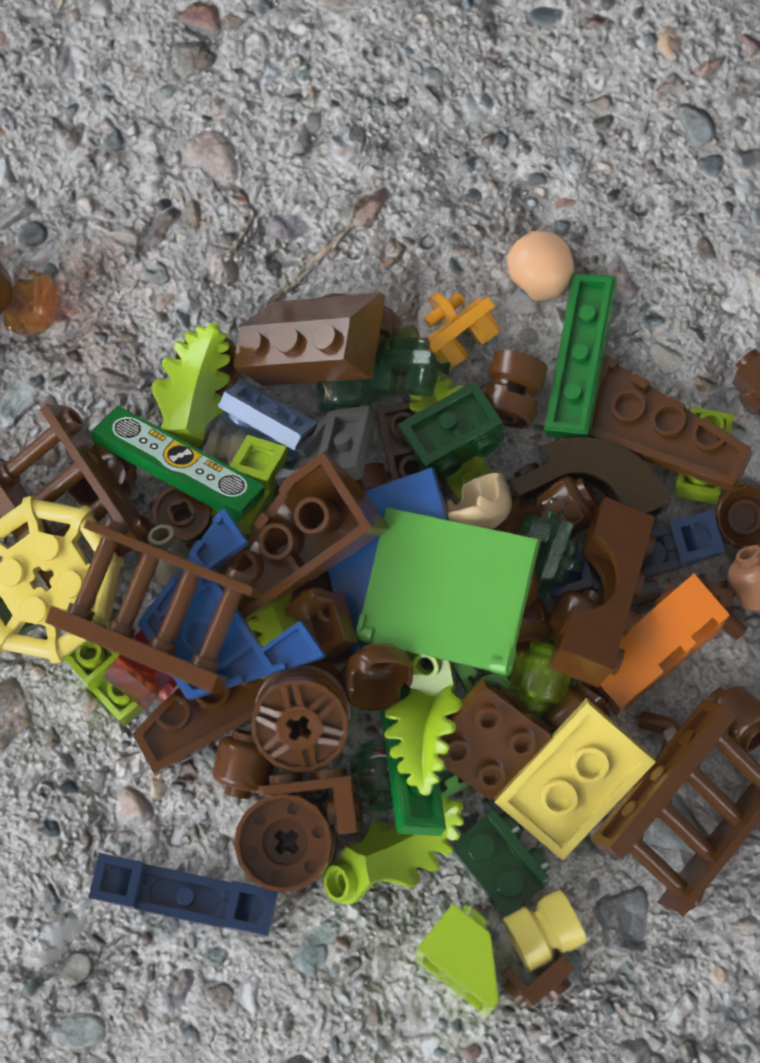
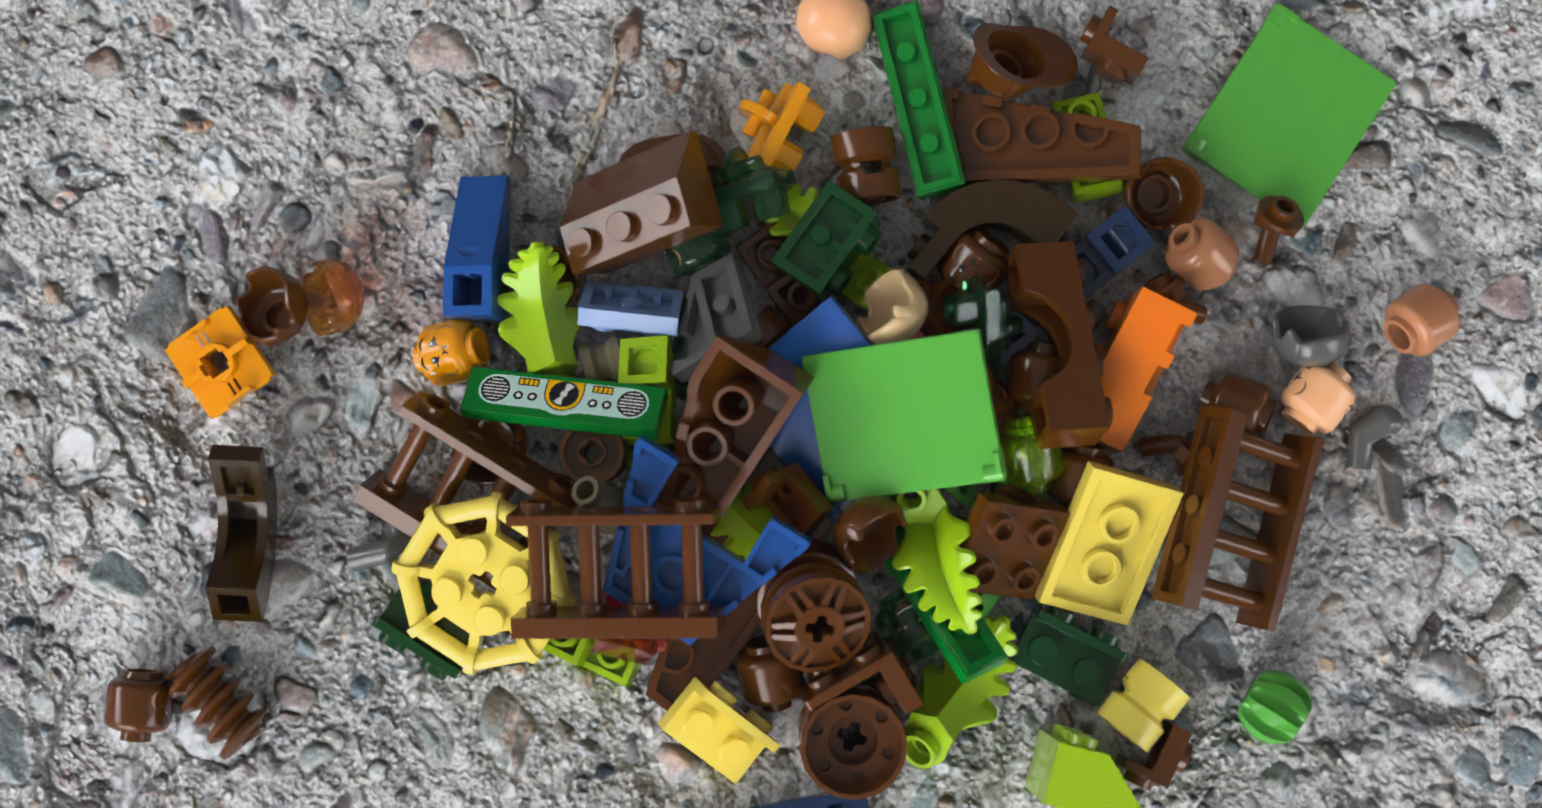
camera: 25 degrees left, 10 degrees up
(104, 386) = (450, 350): none -> light orange head
(164, 319) = (478, 250): none -> blue slope
(178, 790) = (716, 730): none -> light yellow bracket
(657, 983) = (1275, 707): none -> bright green piece
(676, 357) = (1018, 58): none -> reddish brown piece

